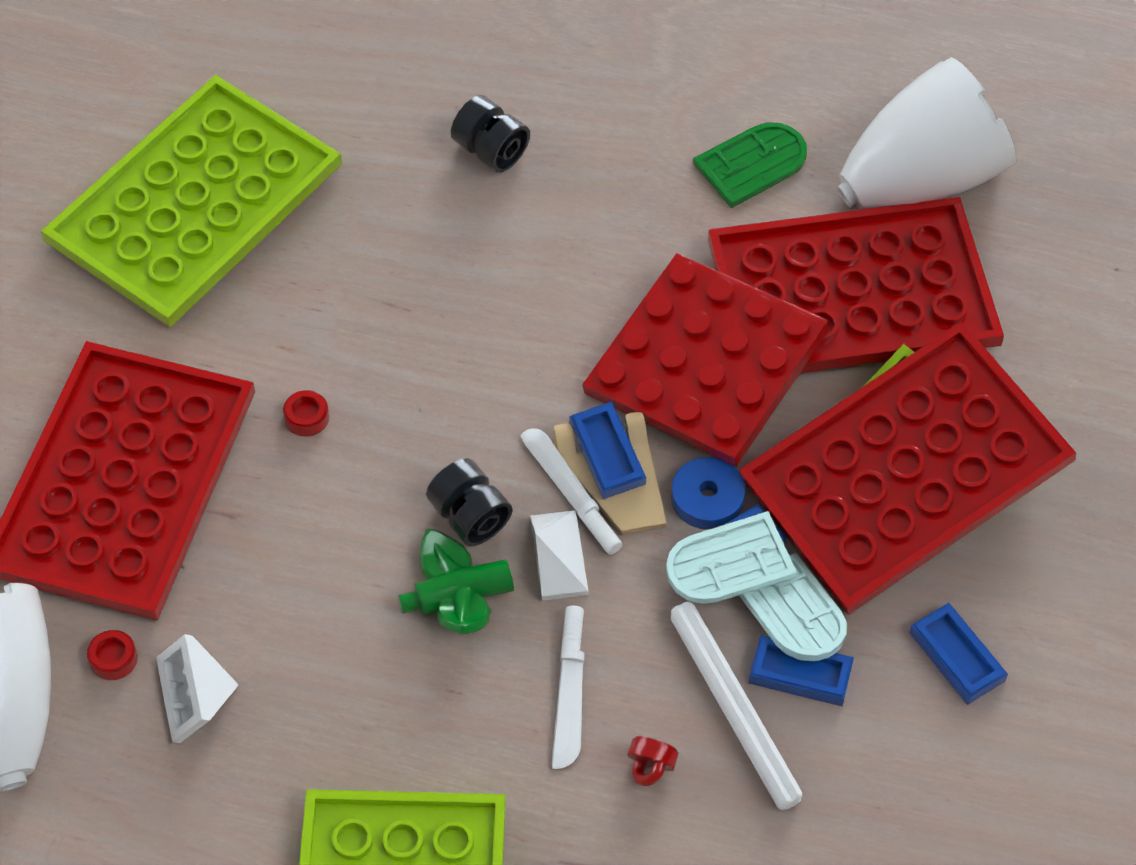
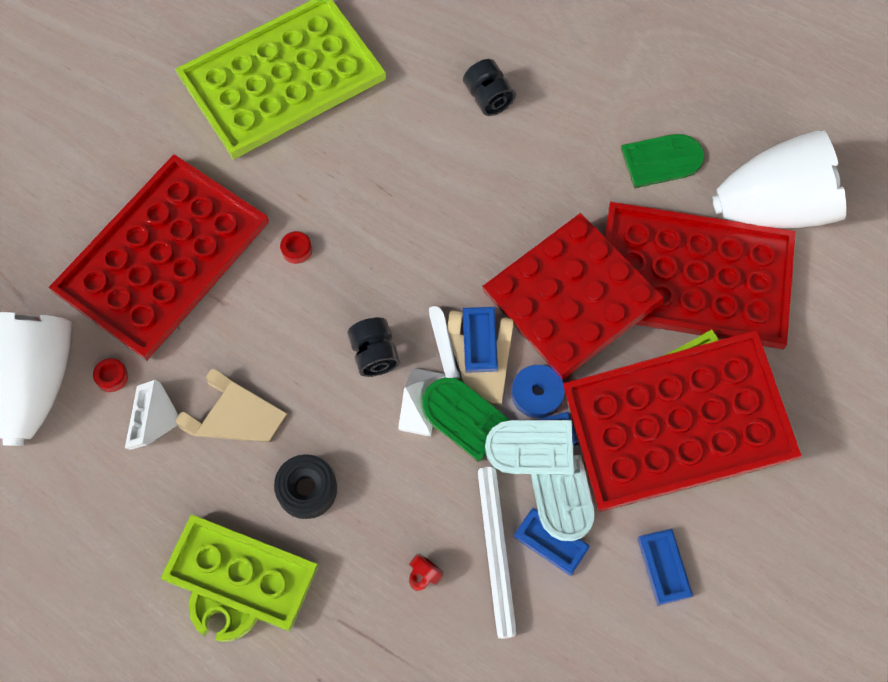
camera: 20 degrees right, 10 degrees up
(310, 650) = (235, 415): none -> tan flag
(442, 680) = (299, 468): none -> black tyre
(455, 585) = (343, 402): green plant -> none
(569, 702) = (383, 520): white piece -> none
(619, 551) = (460, 414): none -> green window

